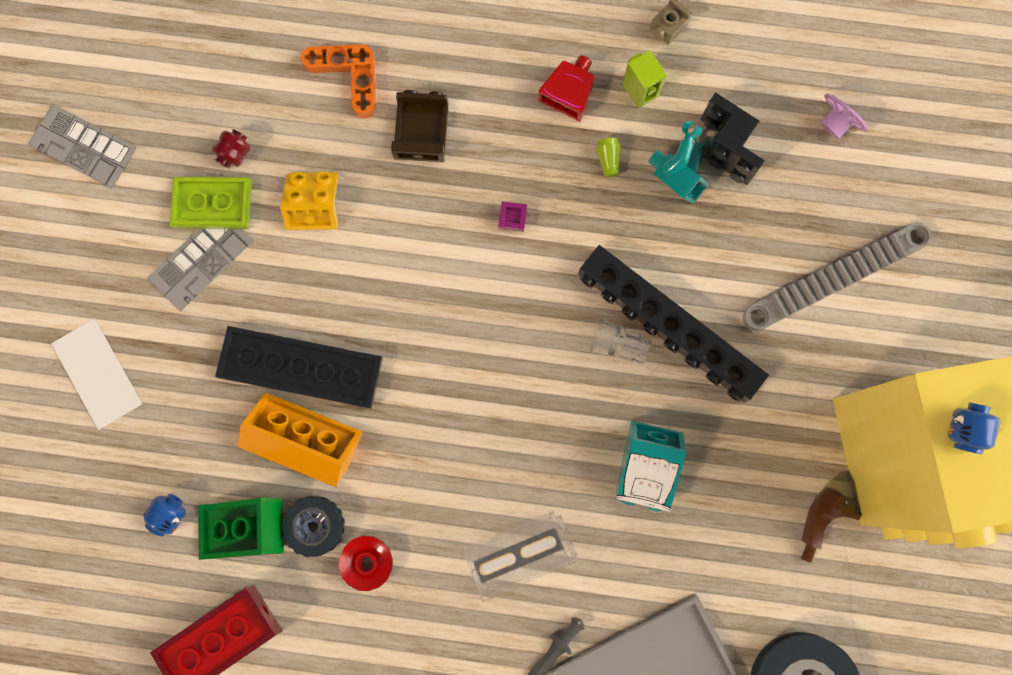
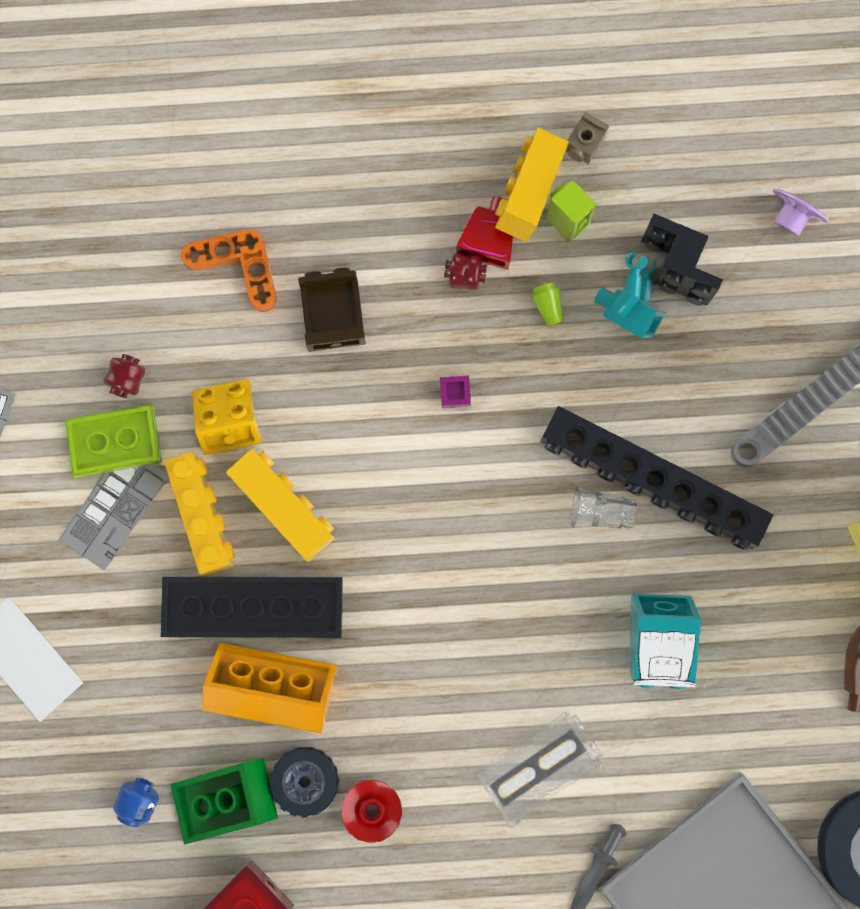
camera: 10 degrees left, 0 degrees up
(269, 278) = (199, 514): none -> yellow brick
(341, 284) = (280, 505): none -> yellow brick
(542, 114) = (465, 271): none -> dark red piece
(614, 50) = (531, 185): none -> yellow brick

